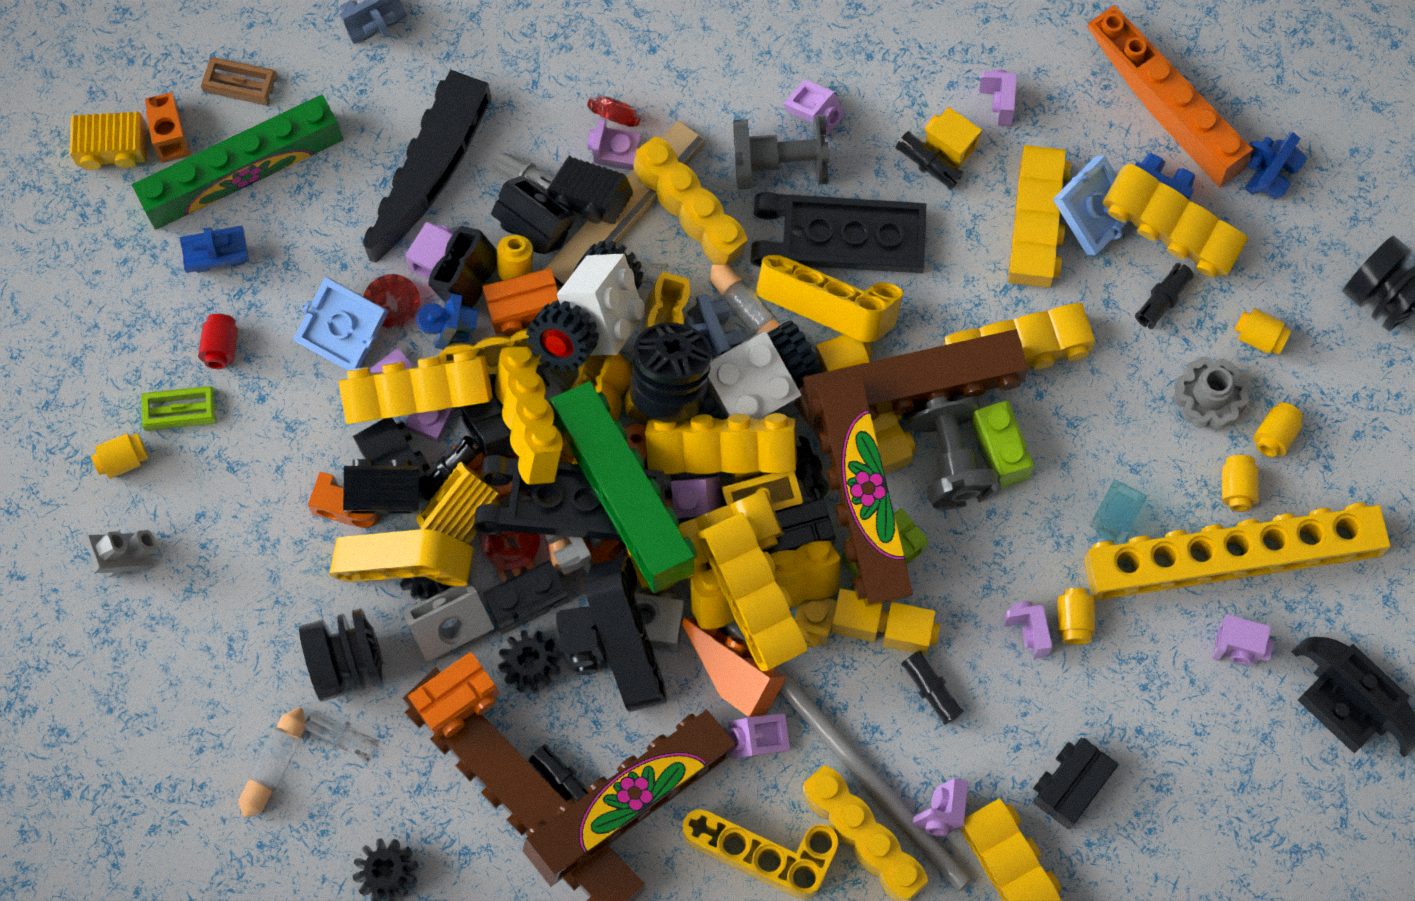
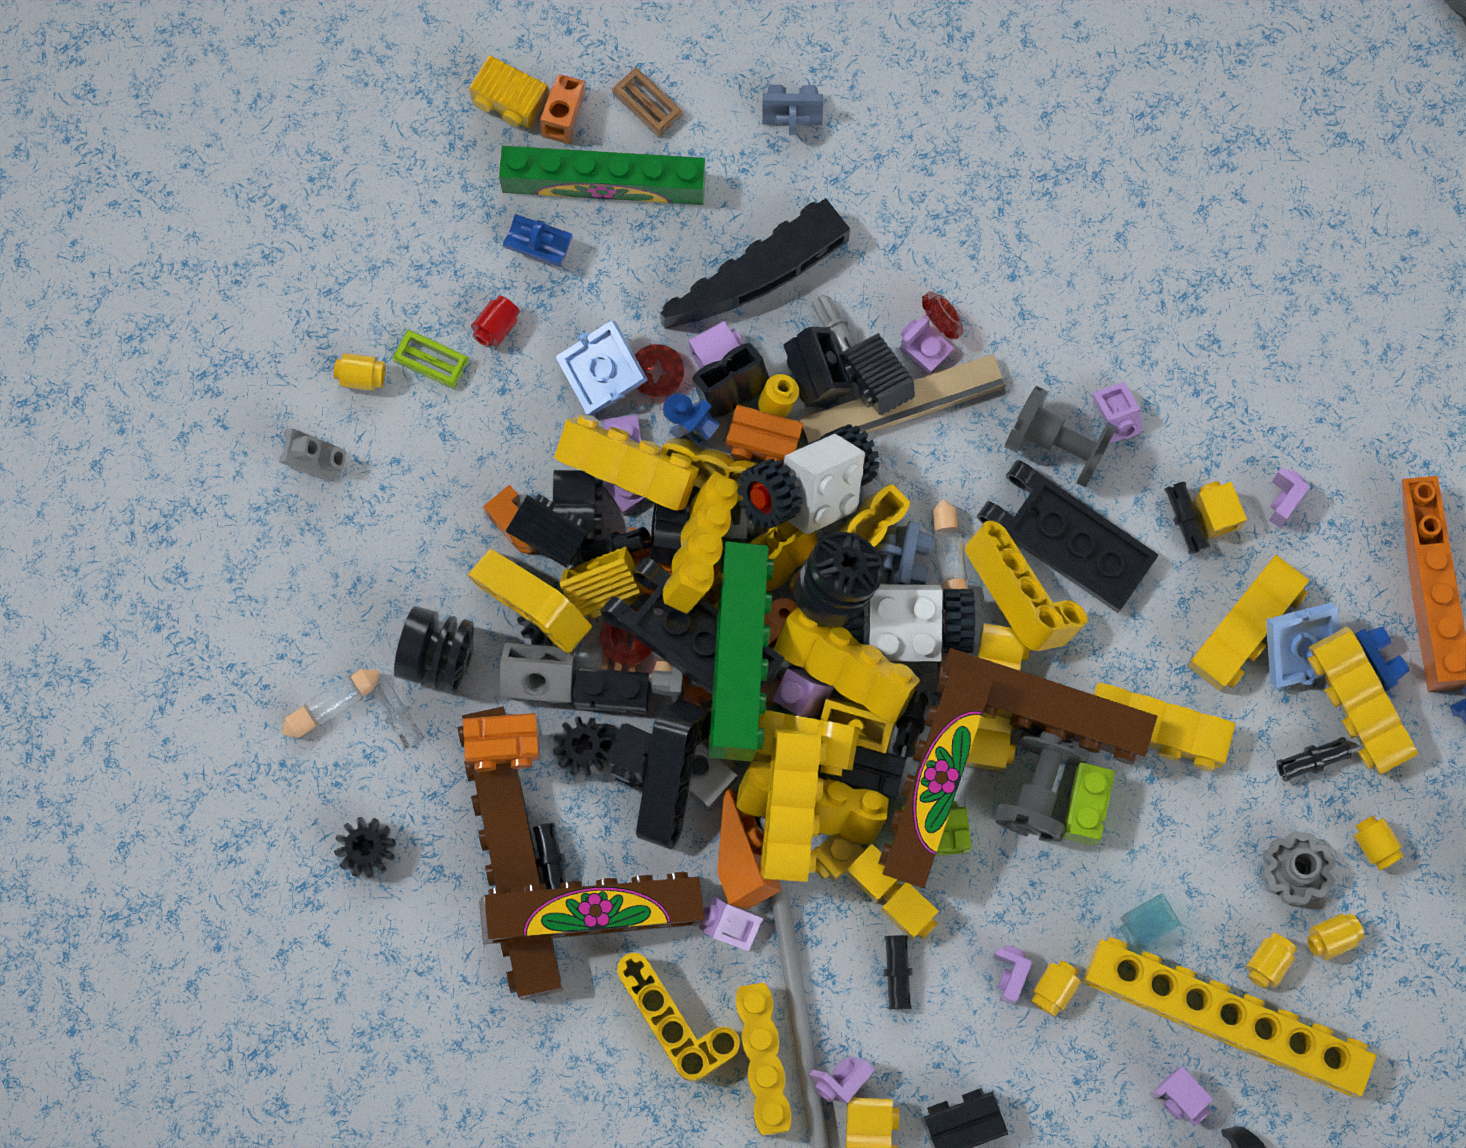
camera: 30 degrees right, 5 degrees up
(683, 197) = (958, 444): yellow brick -> none

